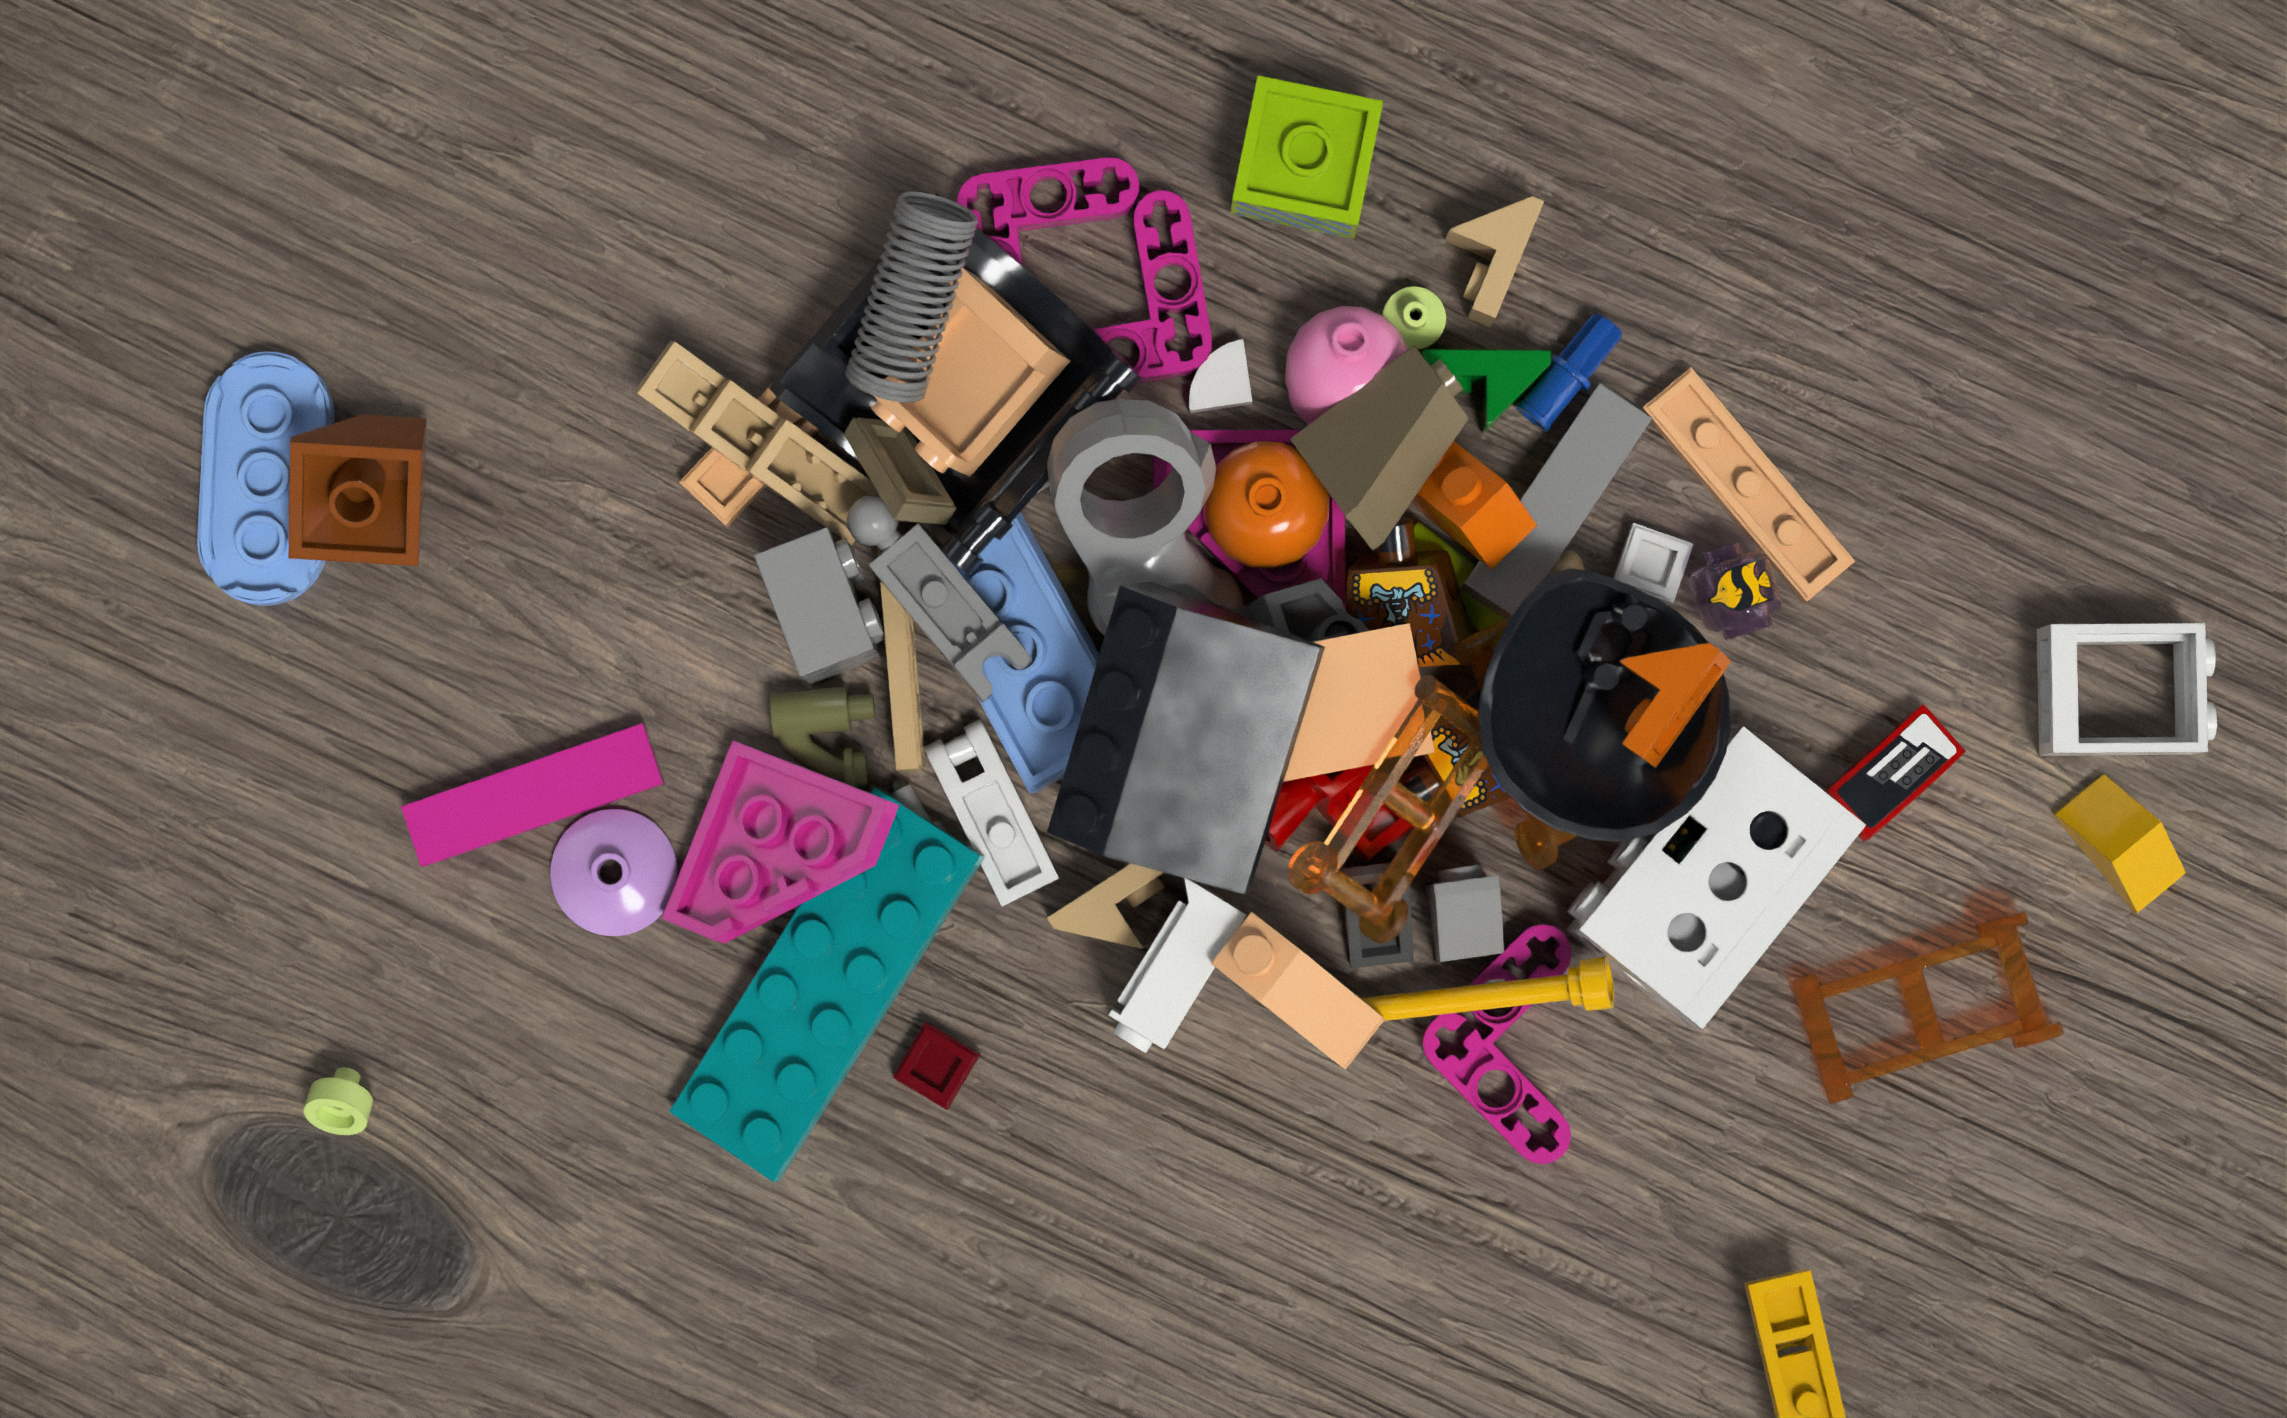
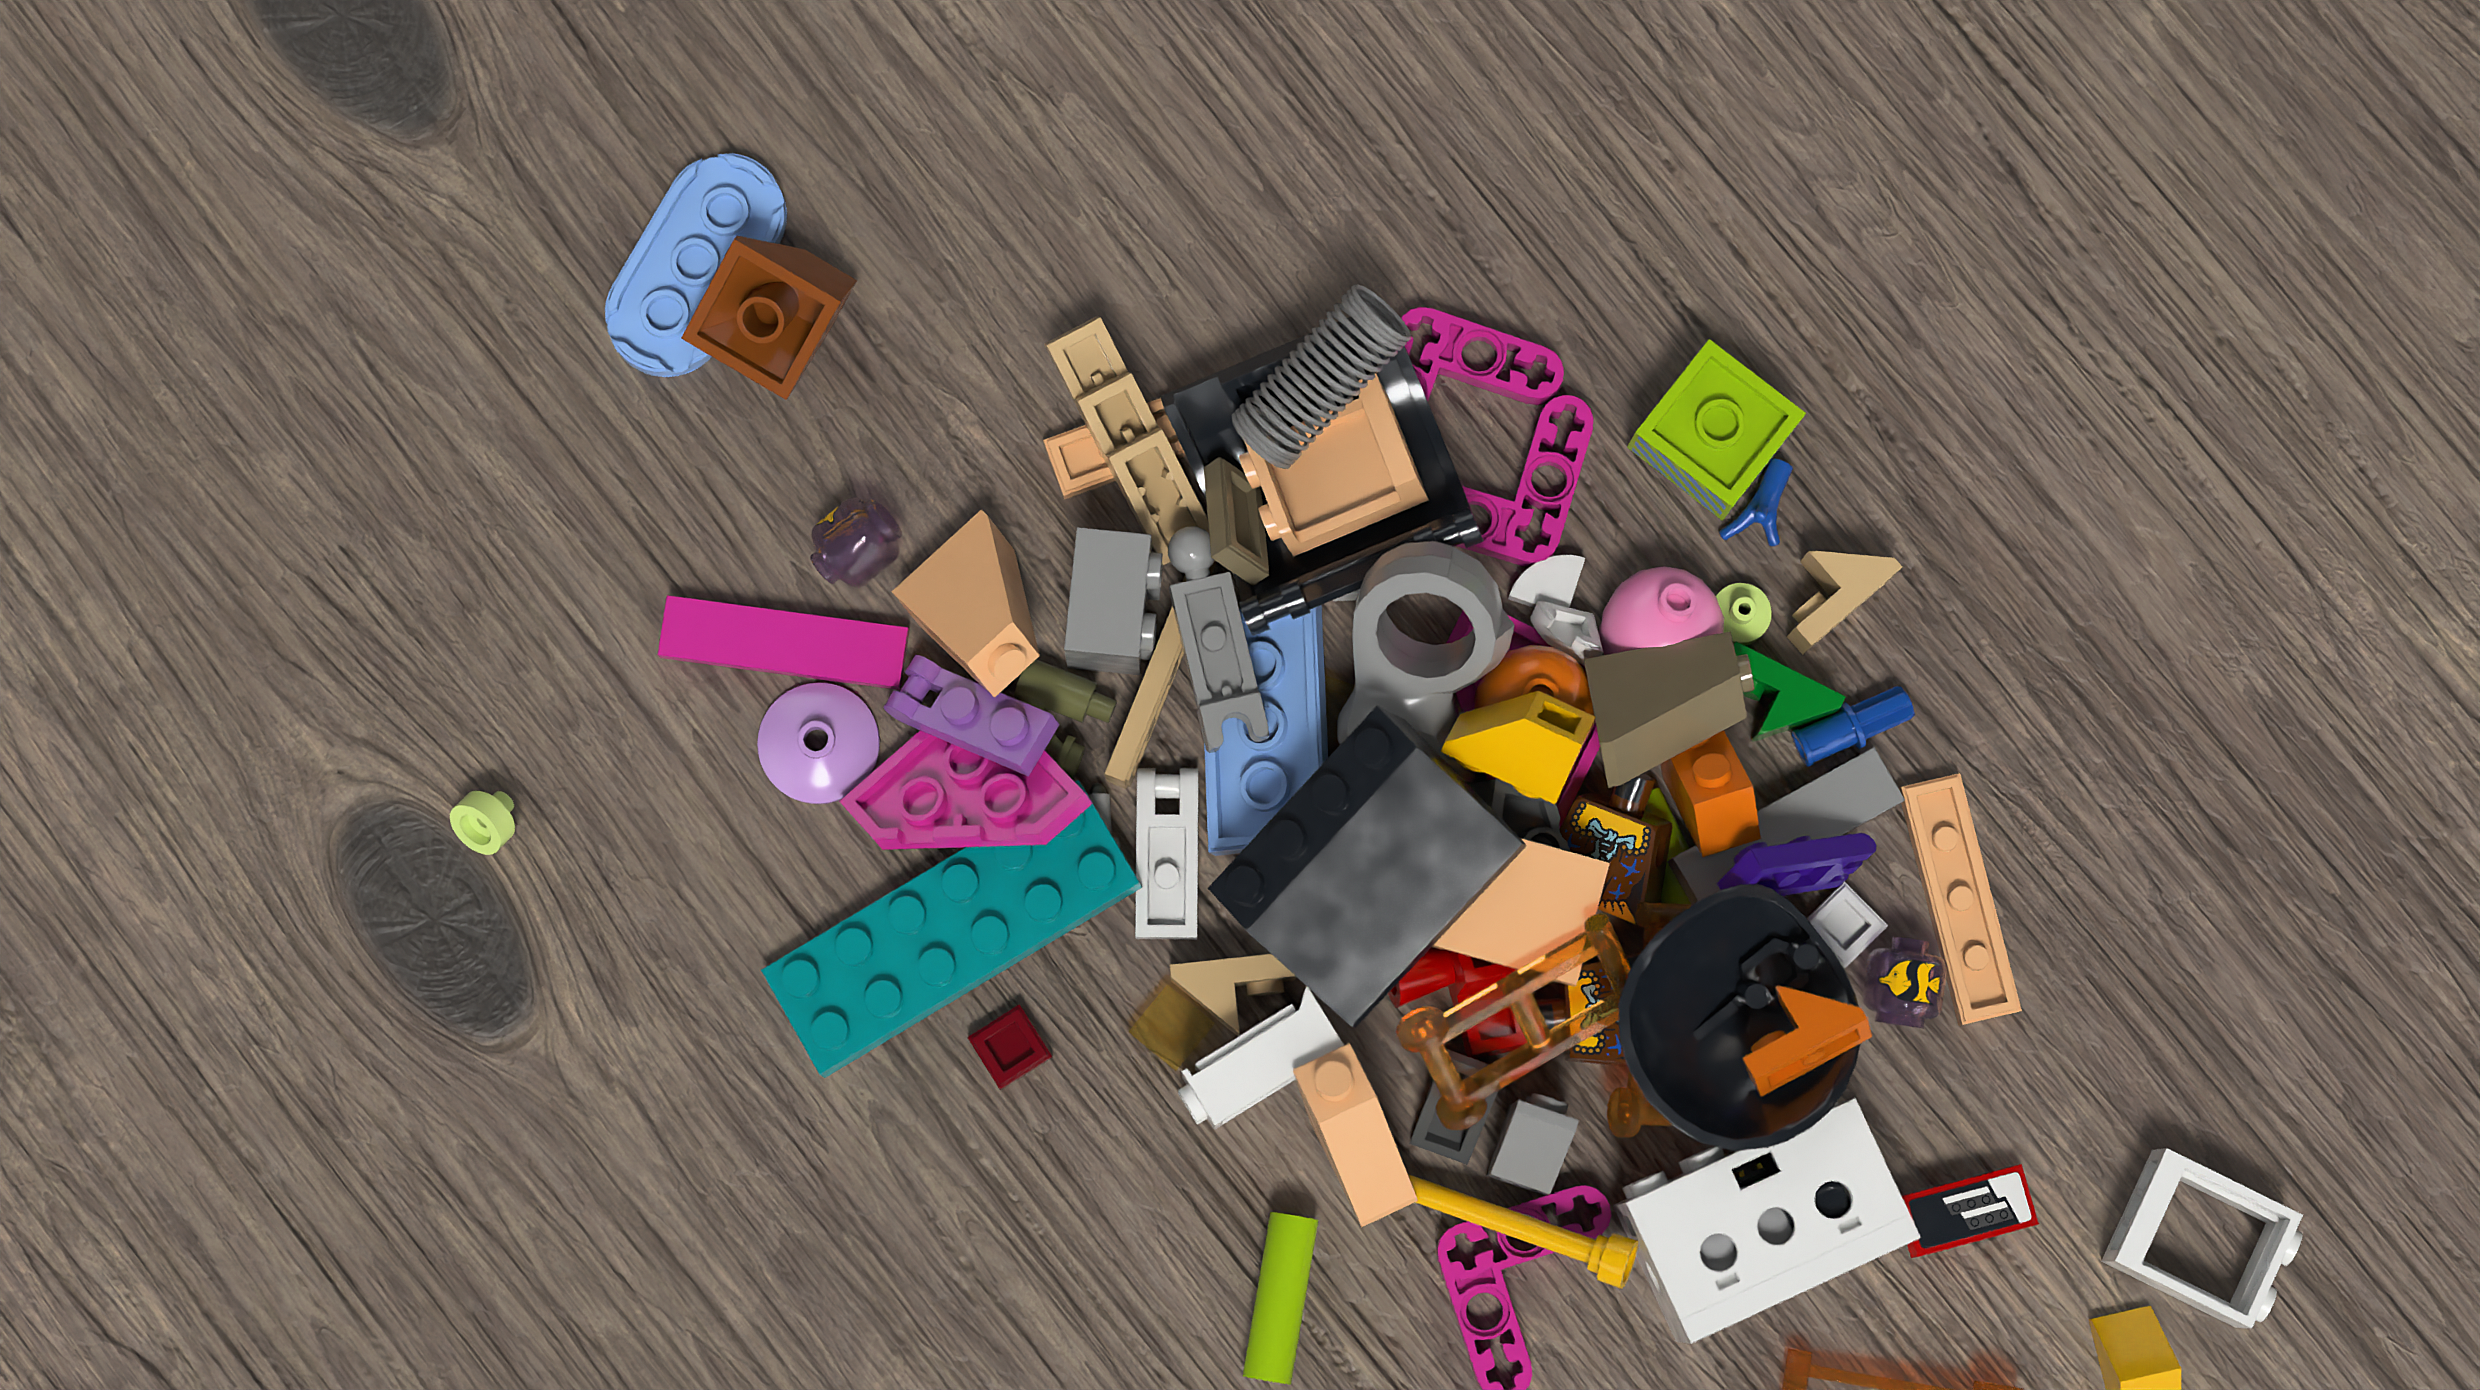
camera: 20 degrees right, 5 degrees down
(552, 668) = (855, 542): none -> clear purple head
(694, 671) = (974, 604): none -> light nougat slope
(746, 778) = (971, 717): none -> medium lavender plate
(1077, 972) = (1171, 1028): none -> clear yellow tile
(1261, 417) = (1568, 630): none -> white tile
(1271, 549) = (1522, 742): none -> yellow slope
(1302, 1171) = (1280, 1298): none -> lime piece
(1385, 203) = (1764, 504): none -> blue bar
(1584, 531) = (1800, 864): none -> dark purple hinge

